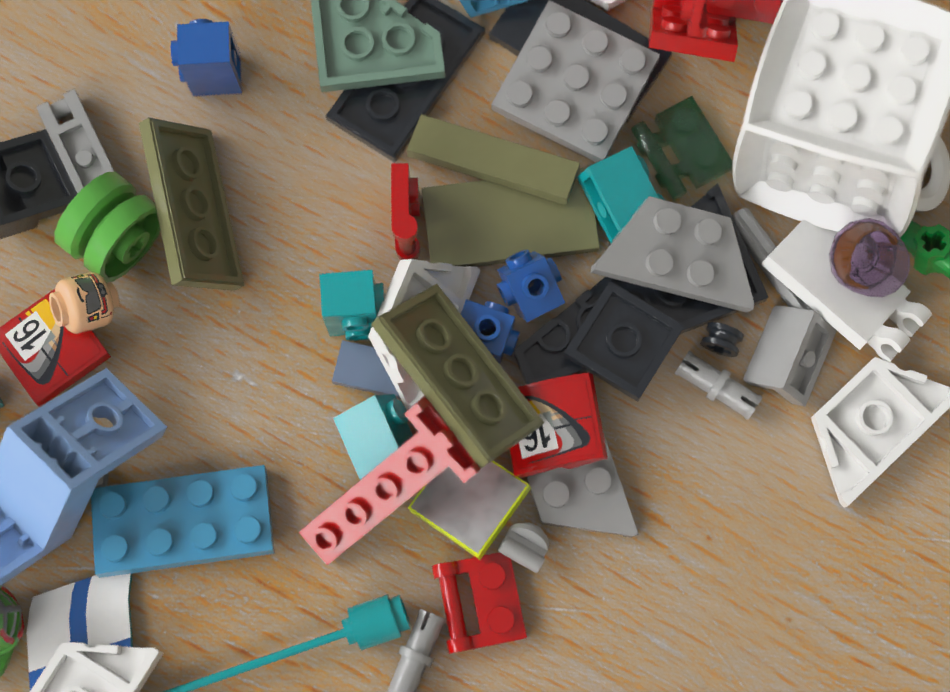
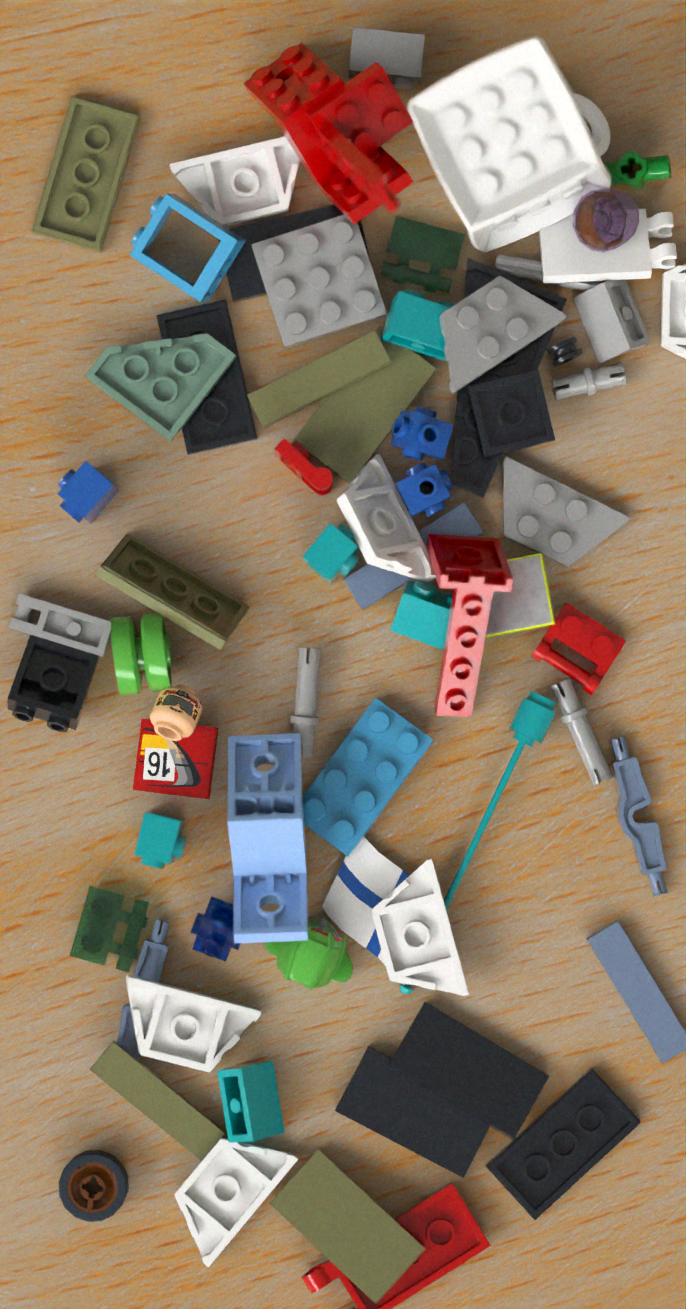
camera: 45 degrees left, 10 degrees up
(205, 407) = (306, 698): none -> light grey pin
(457, 374) = (441, 533): olive tile -> none
(525, 545) = (573, 589): light grey plate -> none
(571, 426) = (520, 504): red slope -> none

